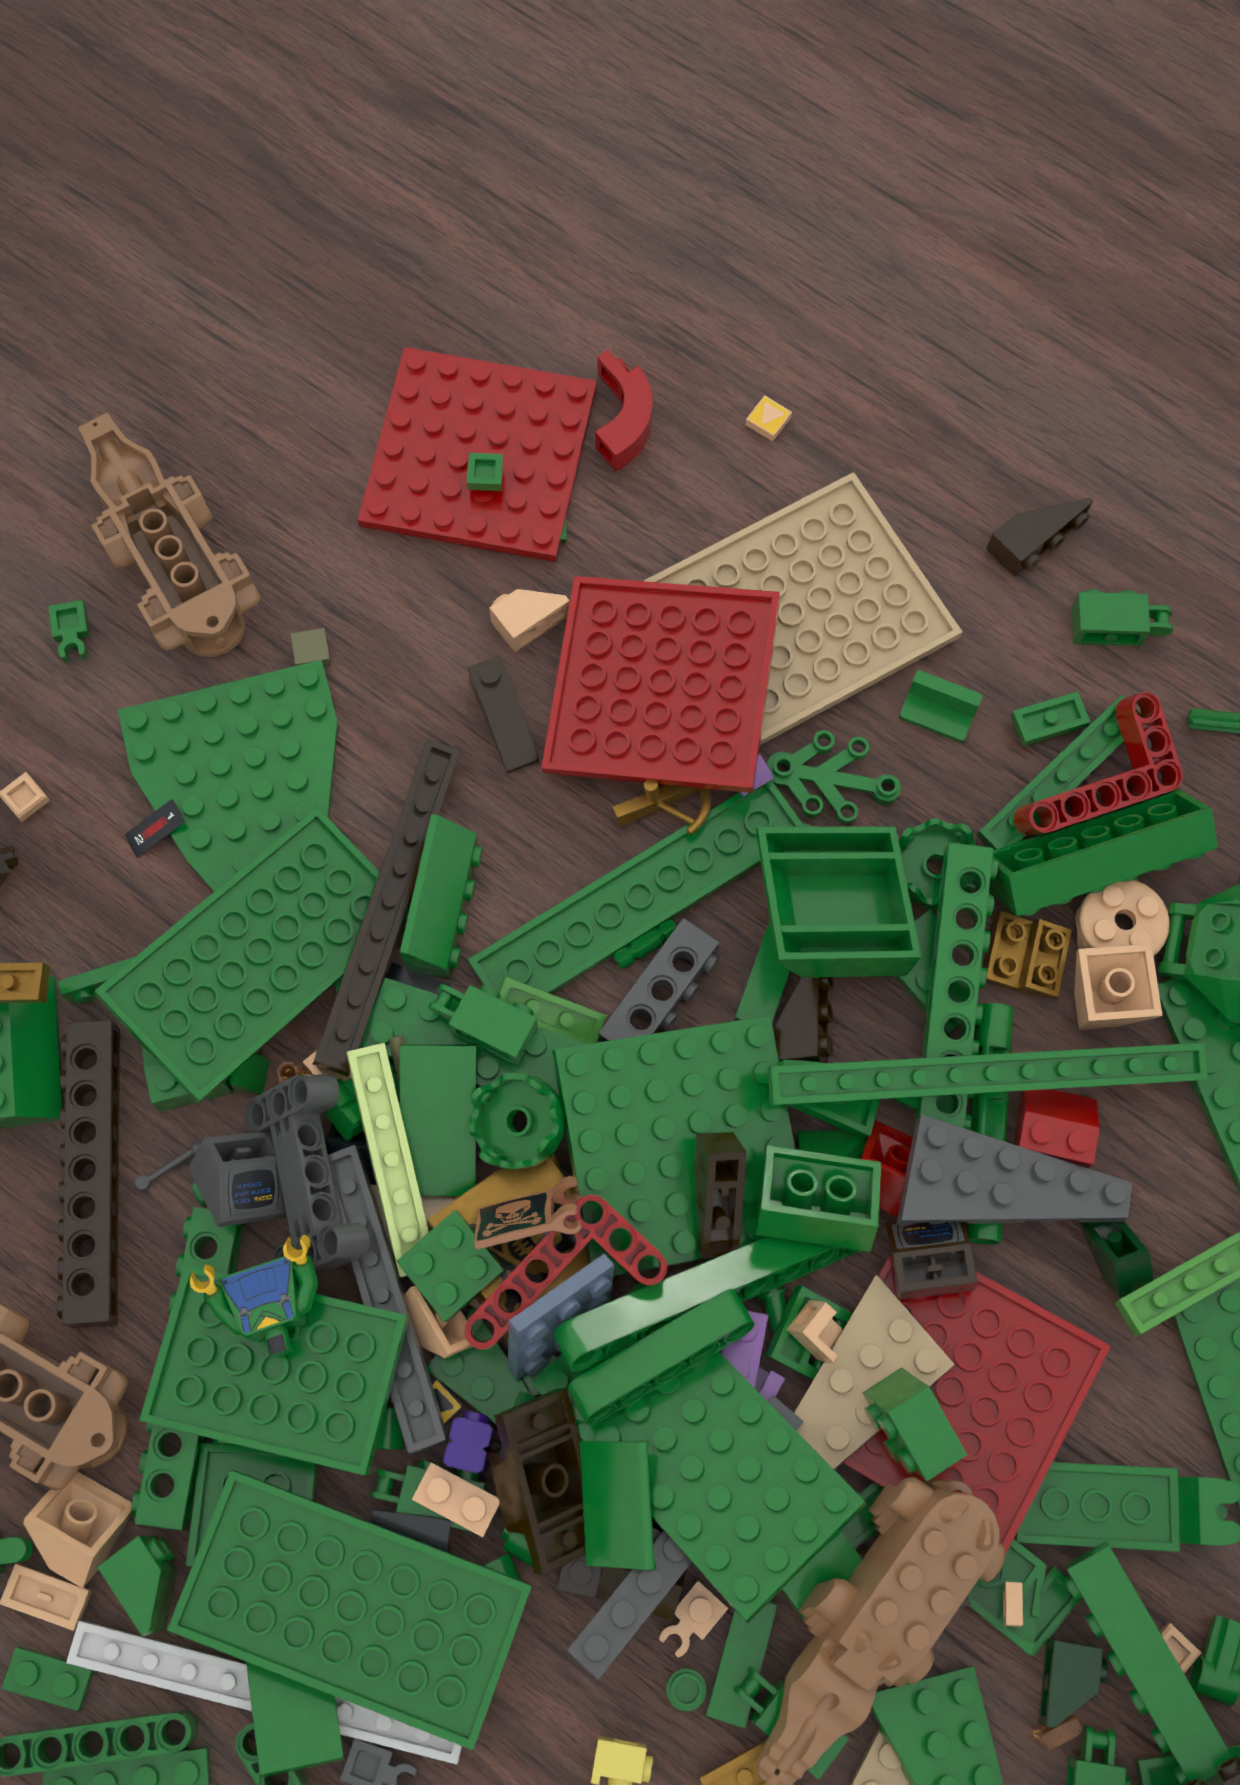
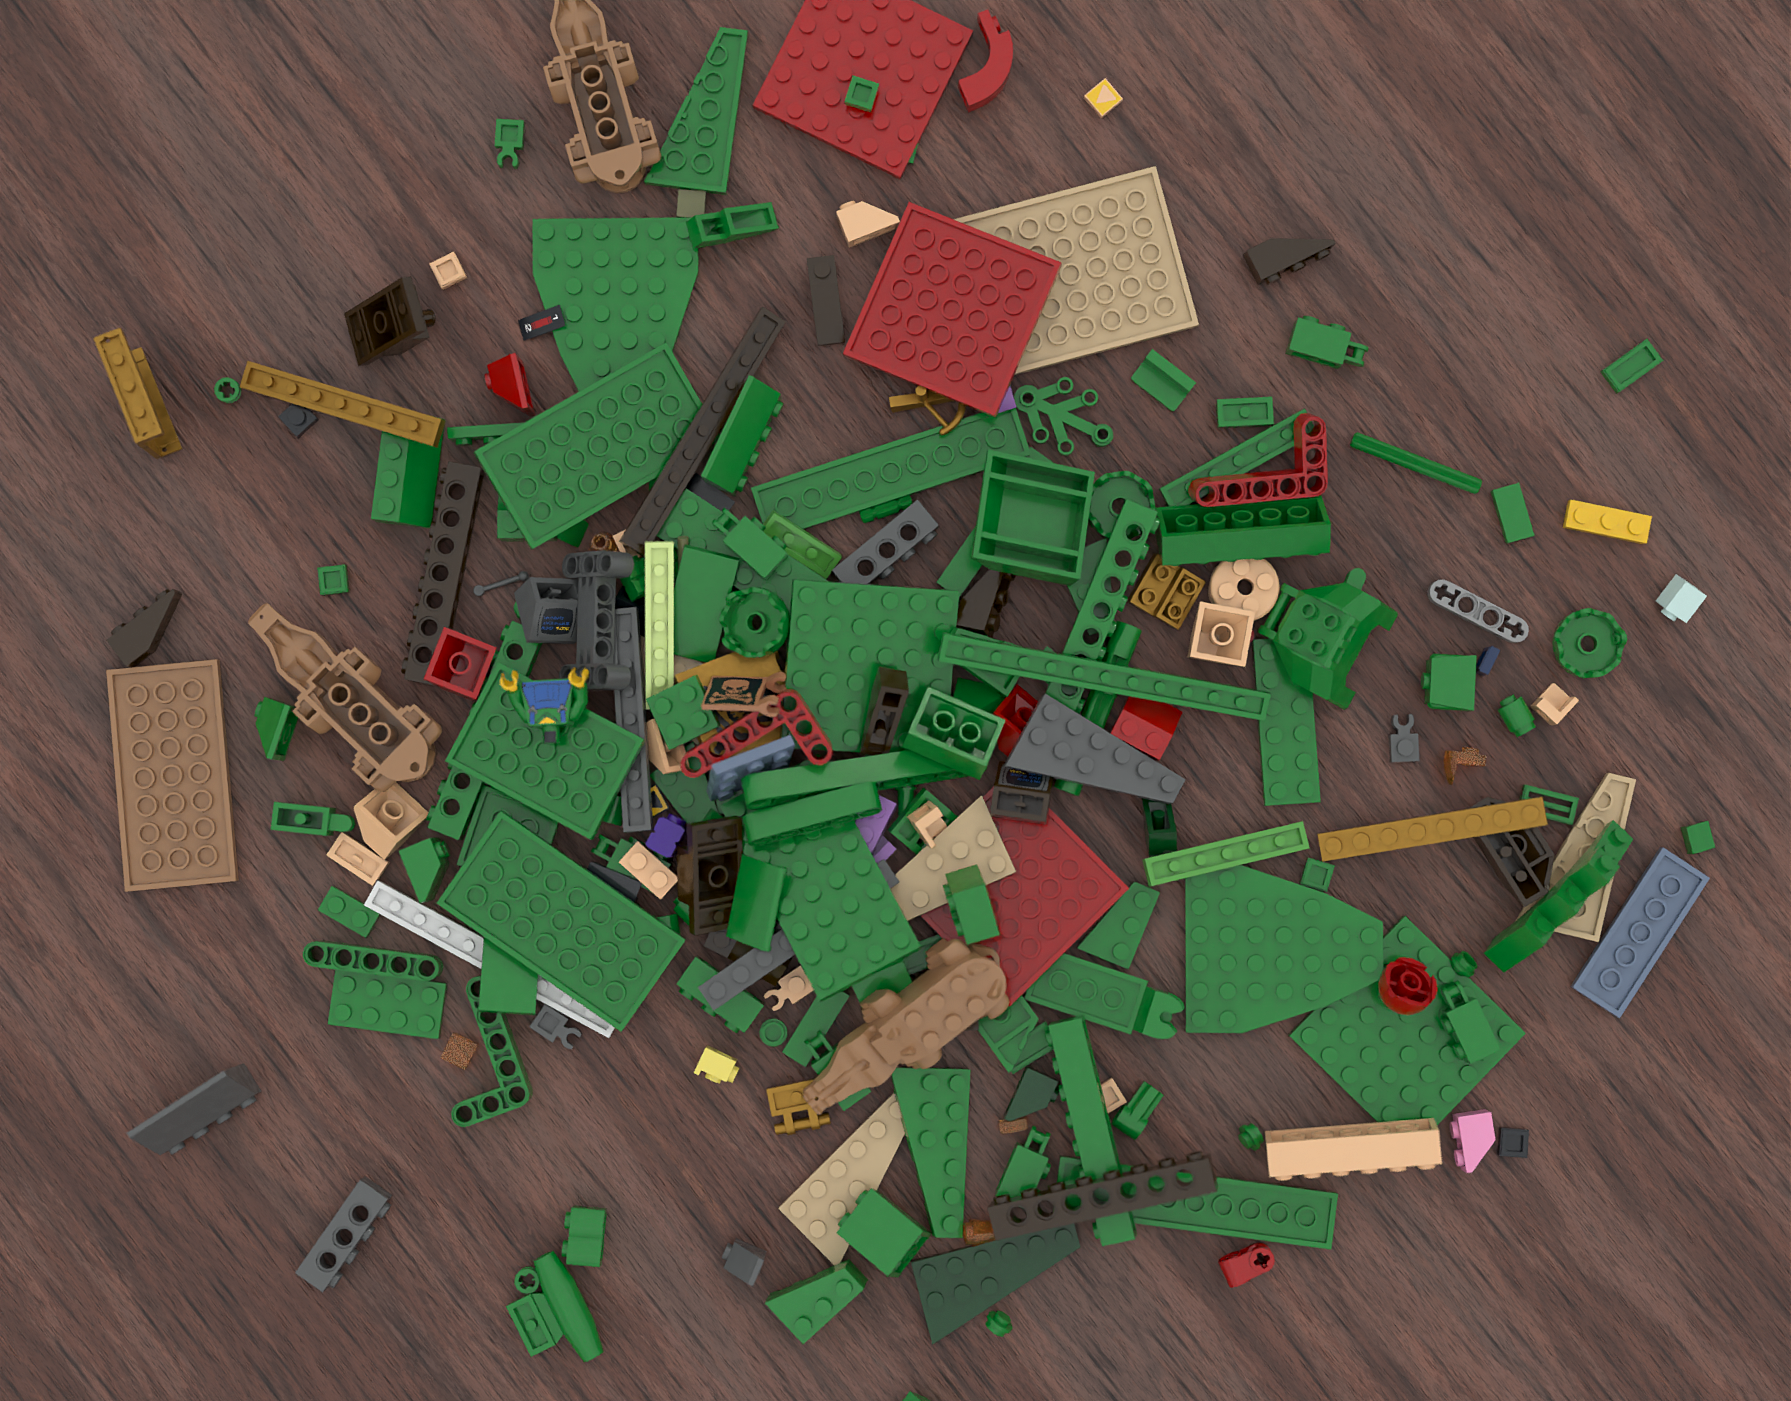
camera: 15 degrees right, 15 degrees up
(127, 905) = (510, 382): none -> red slope
(133, 1283) = (459, 664): none -> red slope
(305, 561) = (703, 132): none -> green wing
(364, 657) = (731, 224): none -> green slope
(630, 1672) = (737, 1012): none -> green brick
(1012, 1604) = (1005, 1037): light nougat tile -> none
(1114, 1408) = (1122, 927): none -> green wing

